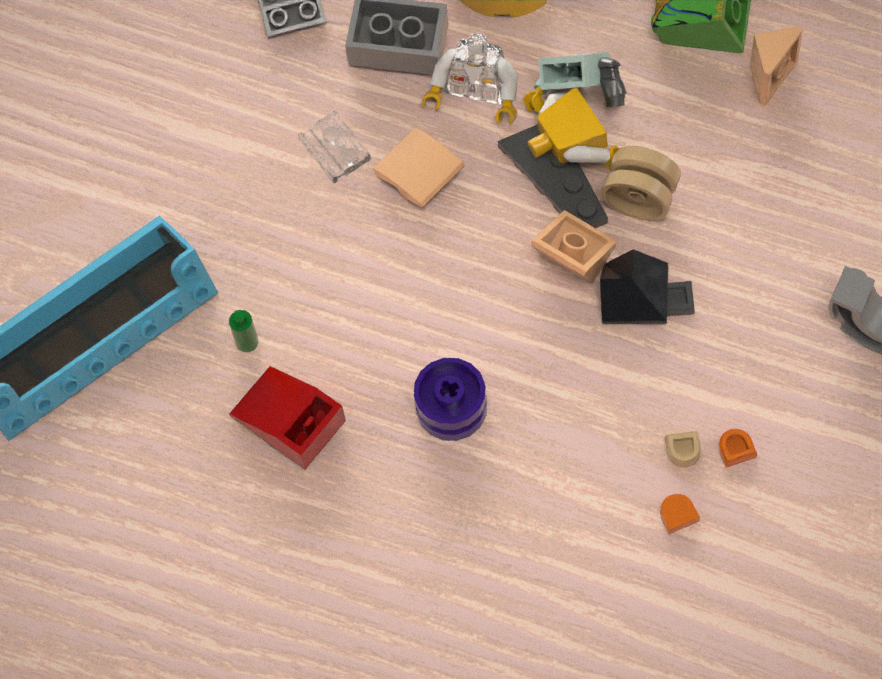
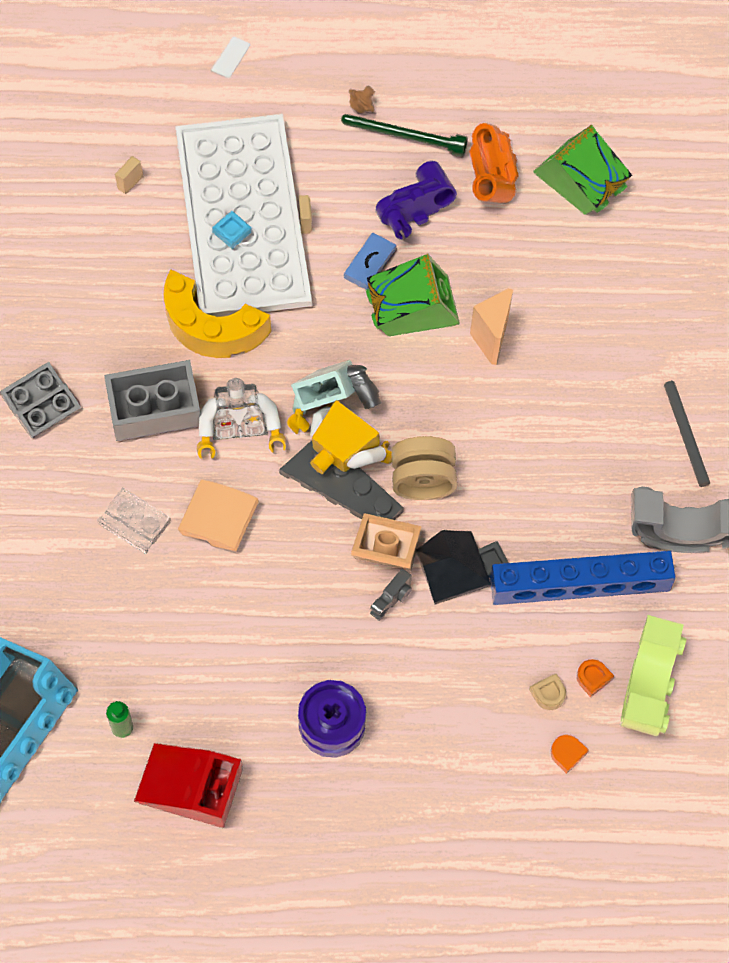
camera: 30 degrees left, 0 degrees up
(565, 296) = (396, 590): none -> dark grey plate
(762, 344) = (582, 577): none -> blue brick
(793, 466) = (650, 677): none -> yellowish green brick

